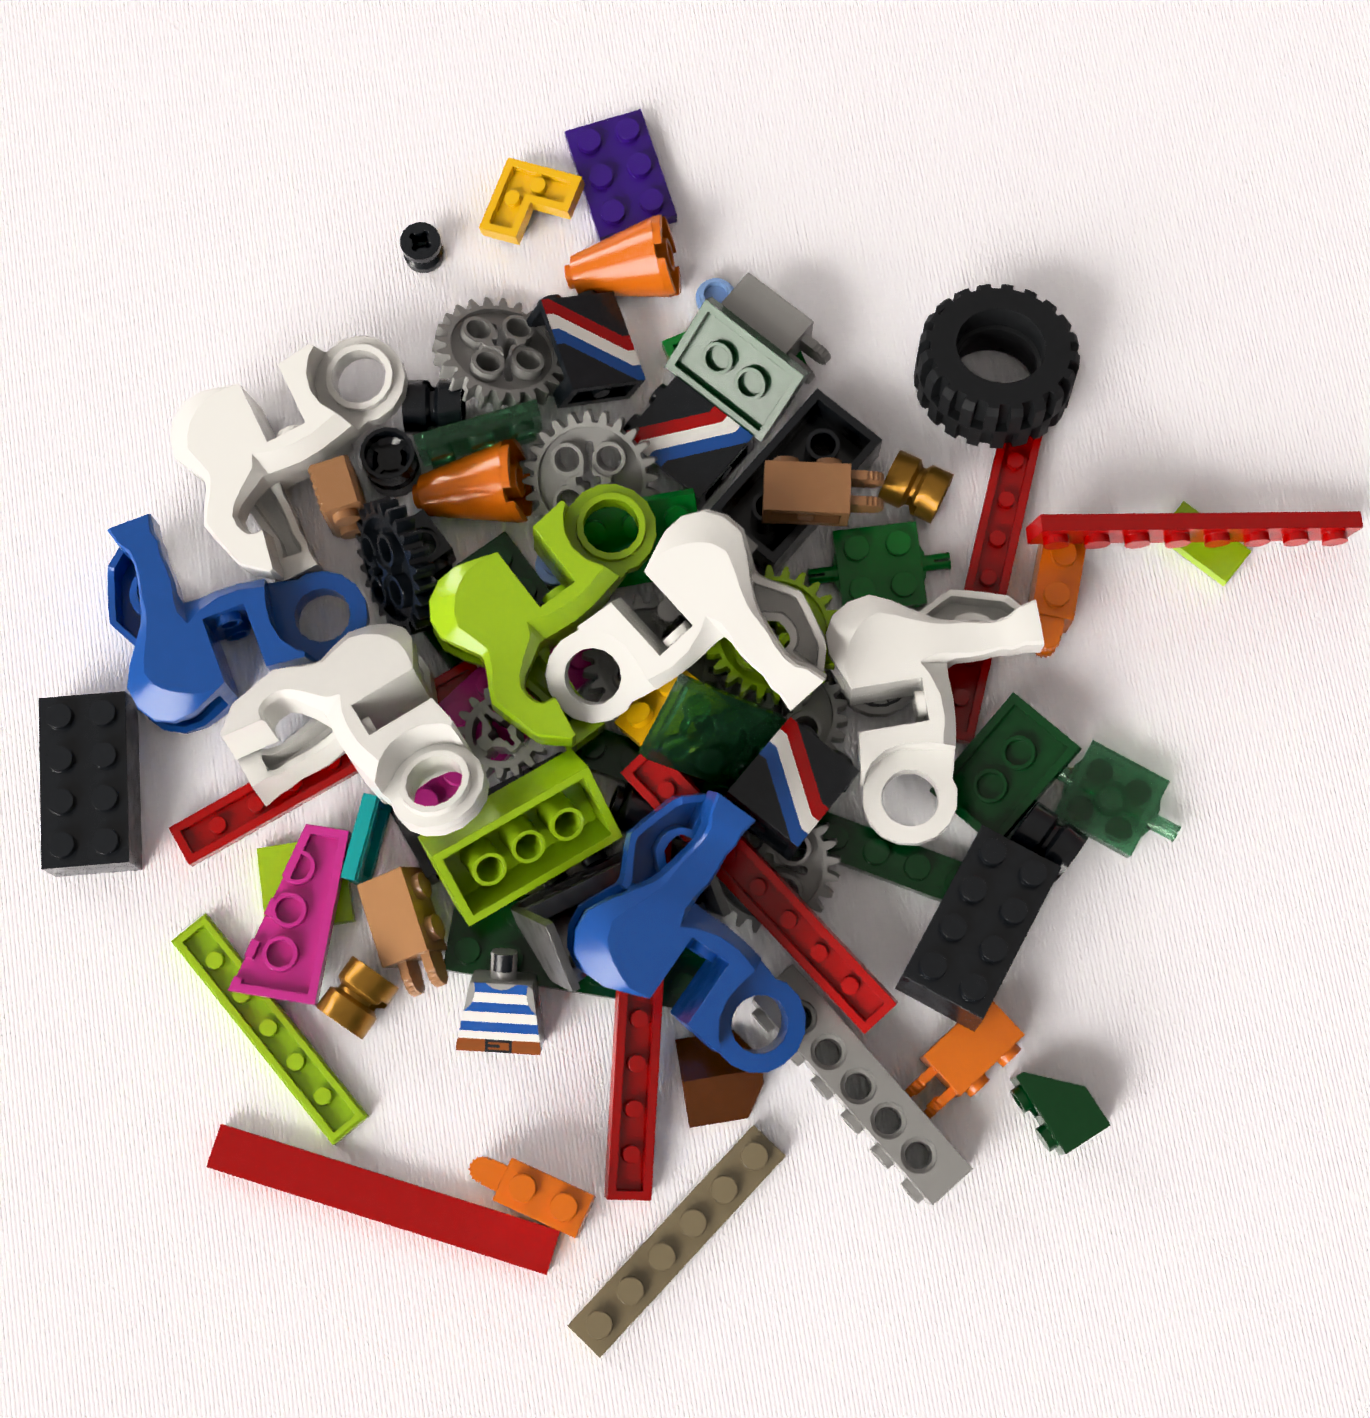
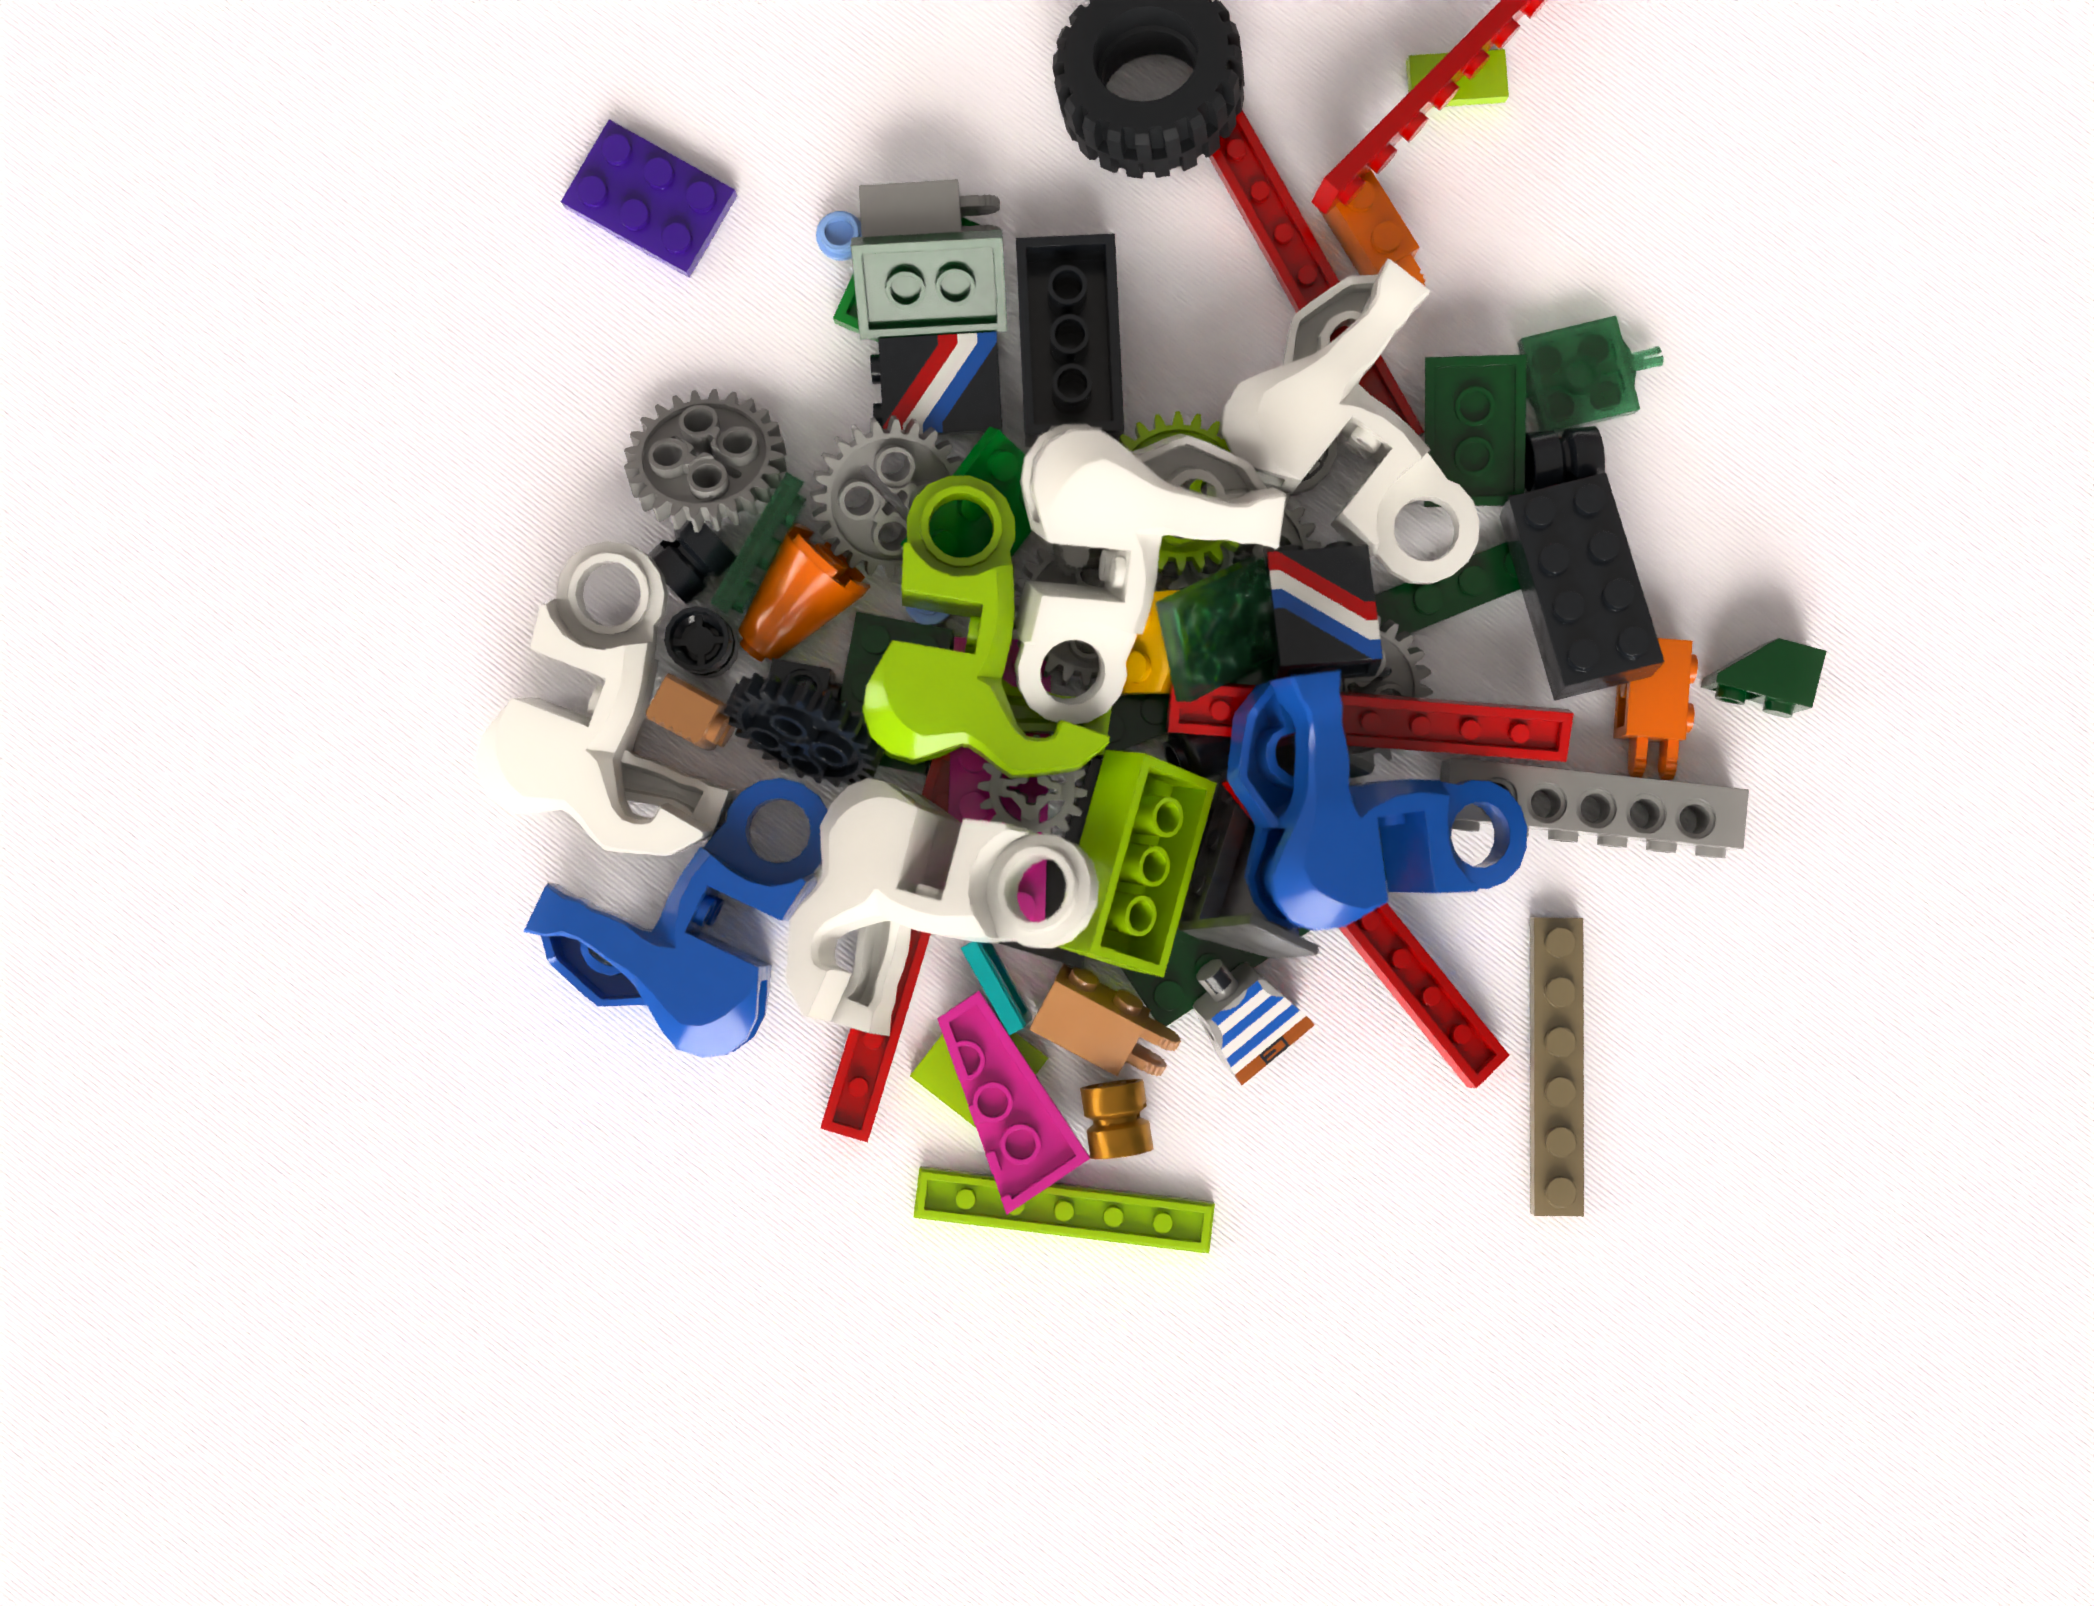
camera: 45 degrees left, 10 degrees up
(89, 784) = (716, 1154): black brick -> none
(384, 1199) = (1290, 1256): red tile -> none
(423, 257) = (543, 434): black wheel -> none
(525, 189) = (577, 291): yellow plate -> none
(534, 1193) = (1414, 1137): orange hinge -> none
(590, 348) = (778, 379): black panel -> none
(629, 263) = (737, 274): orange cone -> none
(712, 1086) = (1470, 920): reddish brown slope -> none
(816, 491) = (1104, 334): medium nougat hinge -> none
(880, 563) = (1205, 351): green plate -> none
(915, 486) = (1174, 249): pearl gold wheel -> none

